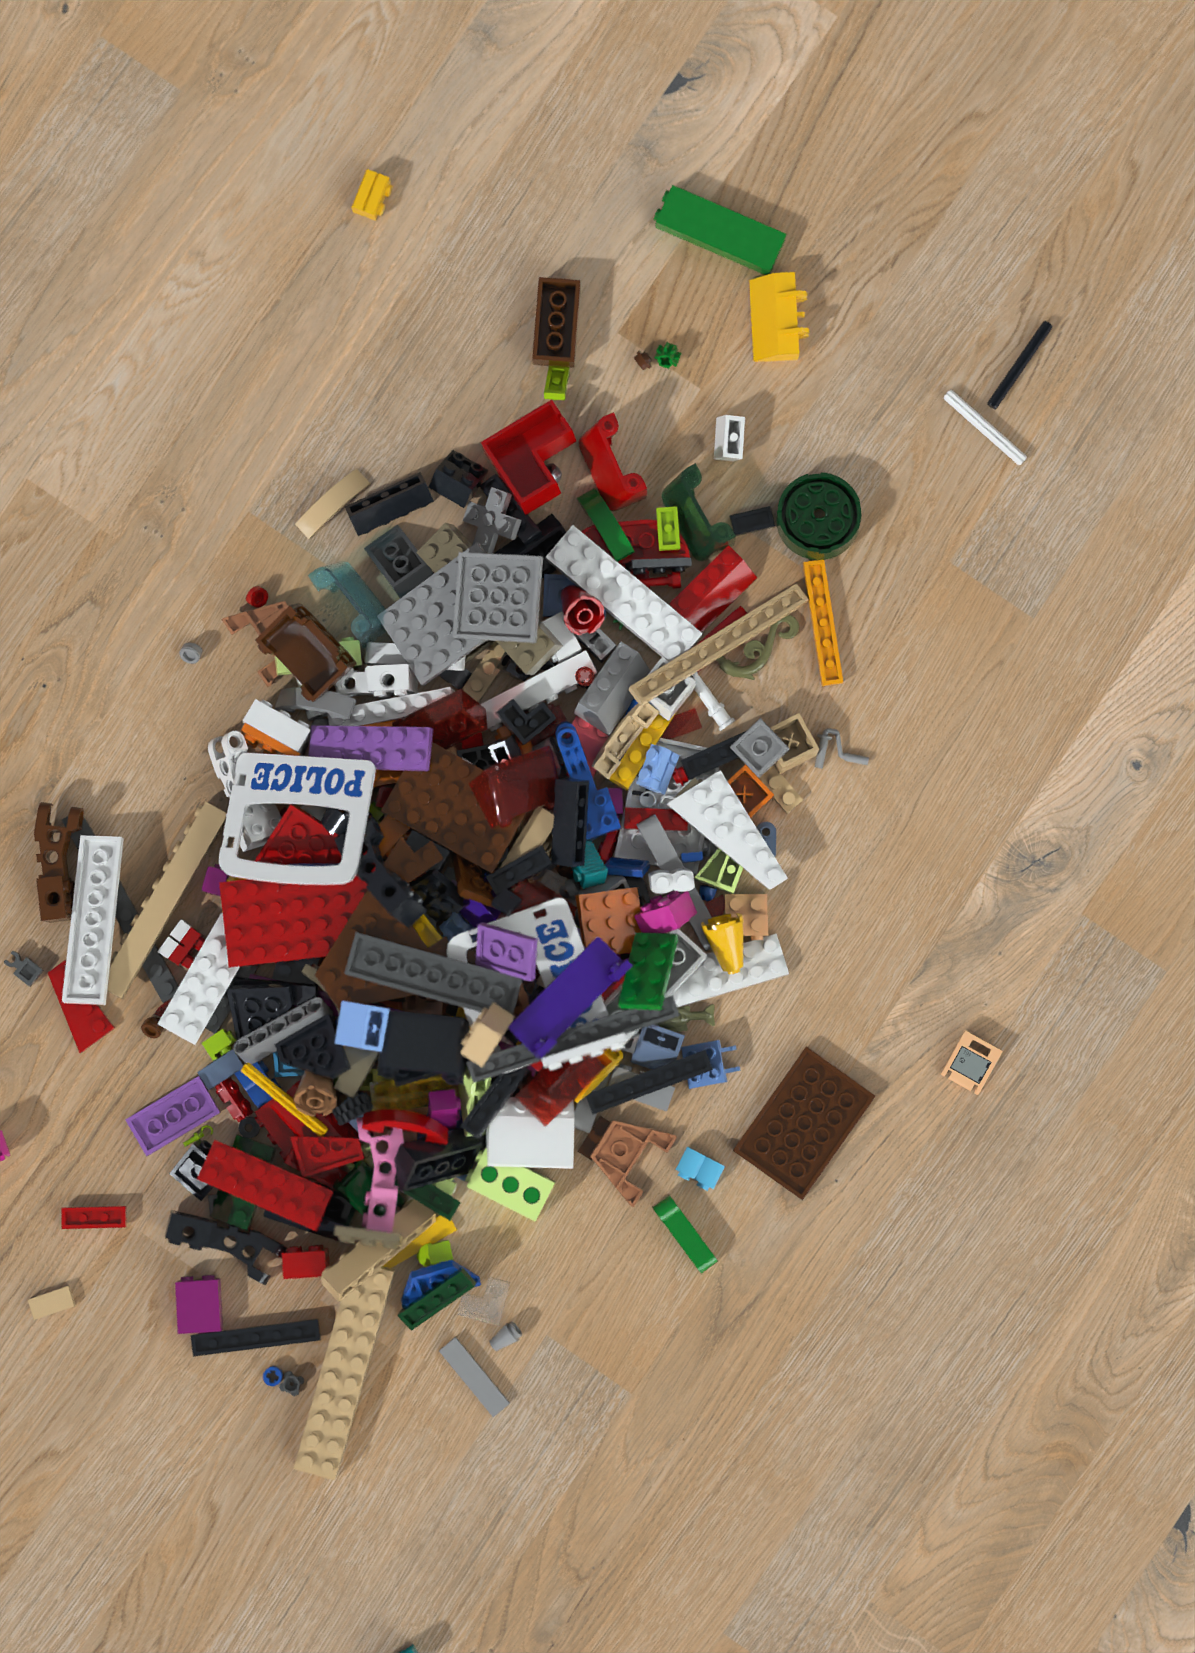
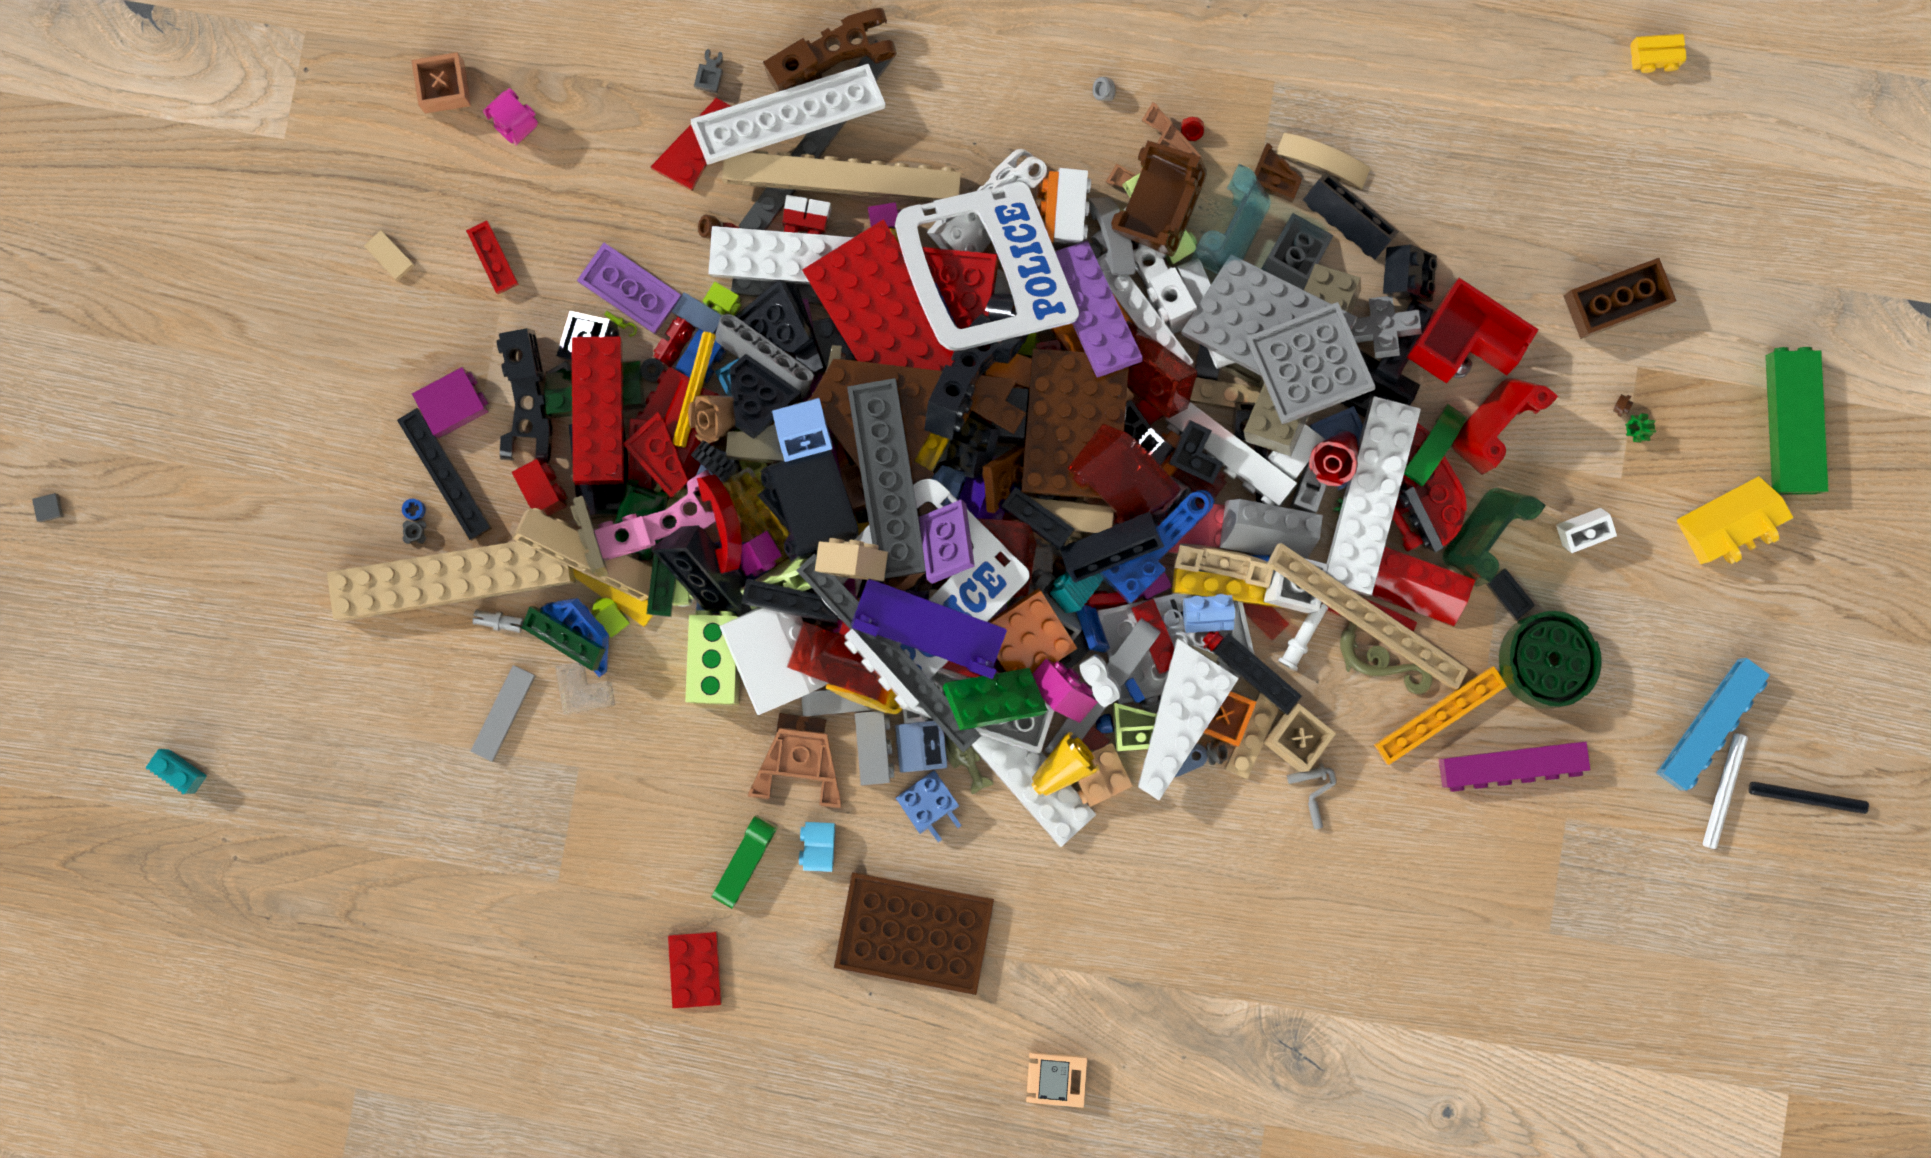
camera: 60 degrees right, 0 degrees up
(327, 548) = (1276, 175): none -> reddish brown wing
(397, 1347) = (498, 621): none -> light grey pin
(506, 902) = (998, 519): black tile -> none
(506, 1336) = (557, 726): light grey cone -> none
(556, 382) = (1557, 327): lime plate -> none
(578, 676) = (1266, 487): clear red bush -> none
(649, 1082) = (882, 753): black plate -> none
(668, 528) = (1462, 509): lime plate -> none
(752, 1314) = (694, 970): none -> red plate
(759, 748) = (1280, 709): light grey tile -> none
(770, 814) = (1216, 752): none -> dark grey plate
(888, 583) = (1514, 764): none -> magenta brick
(928, 411) = (1713, 724): none -> dark azure brick

